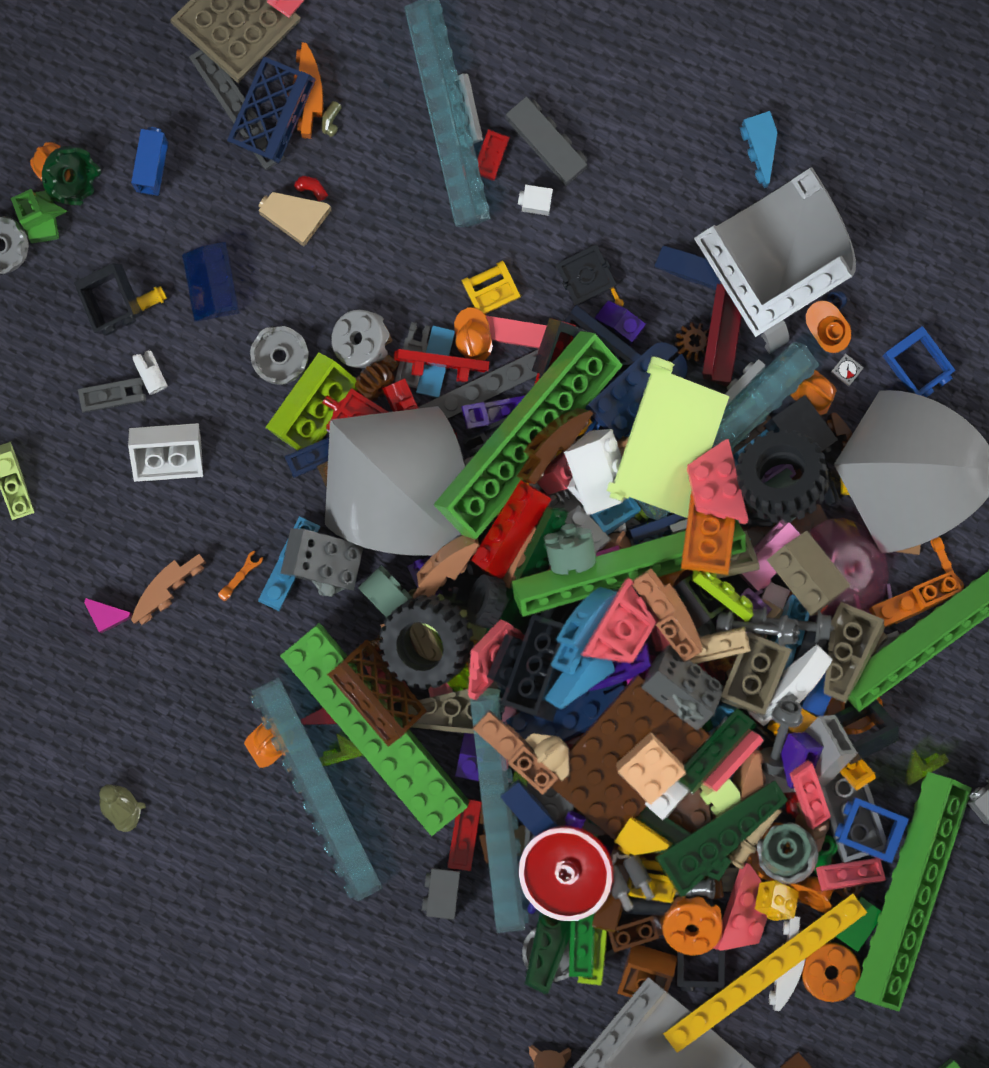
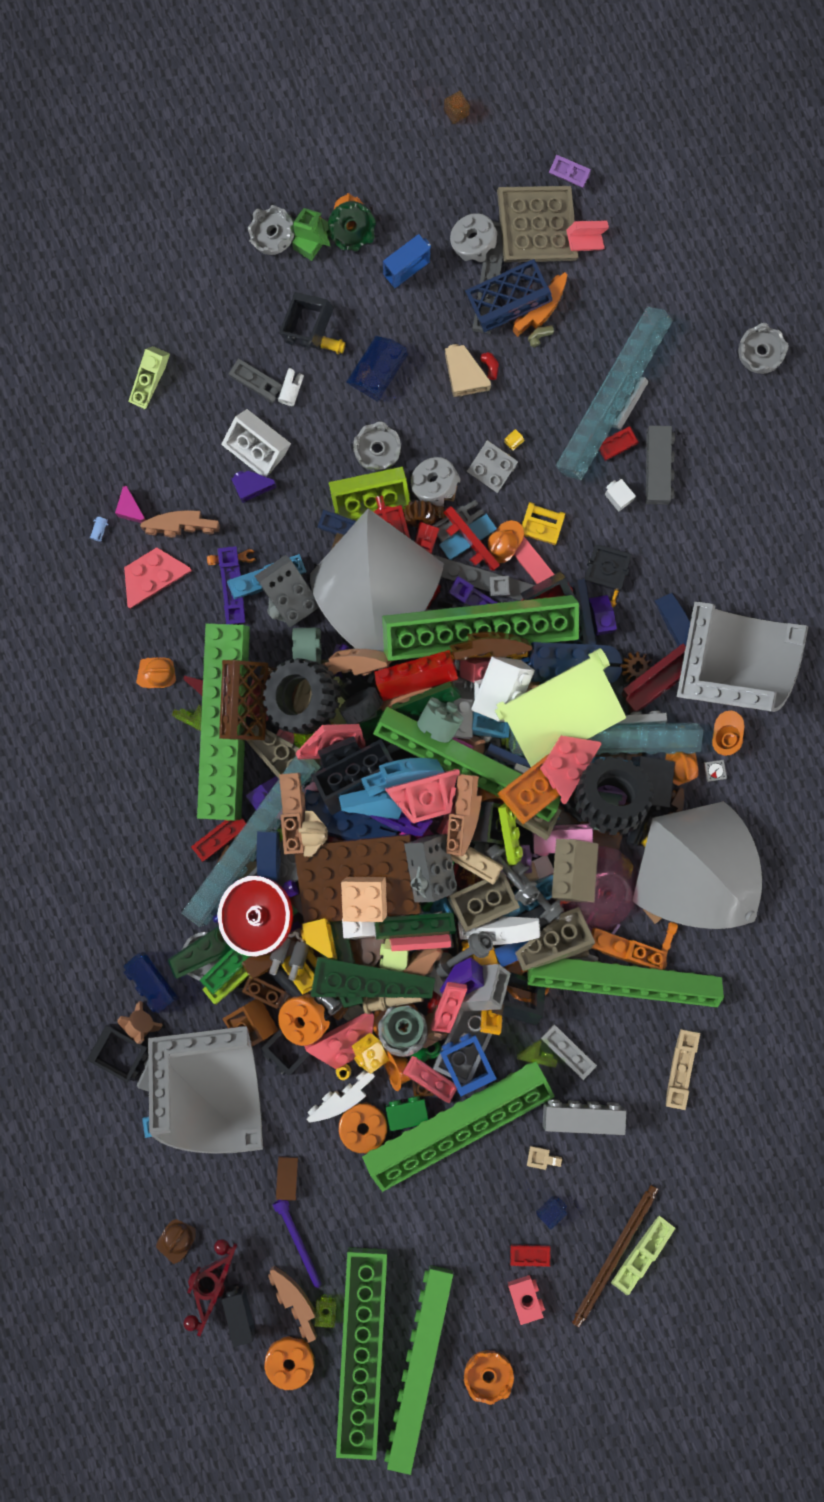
camera: 45 degrees right, 0 degrees up
(95, 660) = (98, 529): none -> light blue pin
(120, 807) = (31, 629): olive hair -> none
(182, 657) = (151, 574): none -> coral wing
(196, 493) = (251, 484): none -> dark purple slope
(203, 84) = (478, 246): none -> light grey plate
(251, 588) = (231, 569): none -> dark purple slope
(316, 789) = (155, 726): clear light blue brick -> none
(395, 236) = (514, 439): none -> yellow hose
(398, 278) = (492, 466): none -> light grey hinge
(442, 893) = (171, 859): dark grey brick -> none
(506, 380) = (499, 586): none -> light grey tile
(525, 1021) = (150, 982): none -> clear blue slope
(761, 136) = (794, 580): dark azure slope -> none
(765, 973) = (322, 1090): yellow plate -> none
(766, 933) = (345, 1067): none -> yellow pin
(776, 336) = (689, 709): light grey slope -> none
(837, 294) = (747, 717): dark blue hinge -> none
(922, 335) = (781, 790): blue window -> none
(947, 737) = (568, 1052): none -> light grey plate

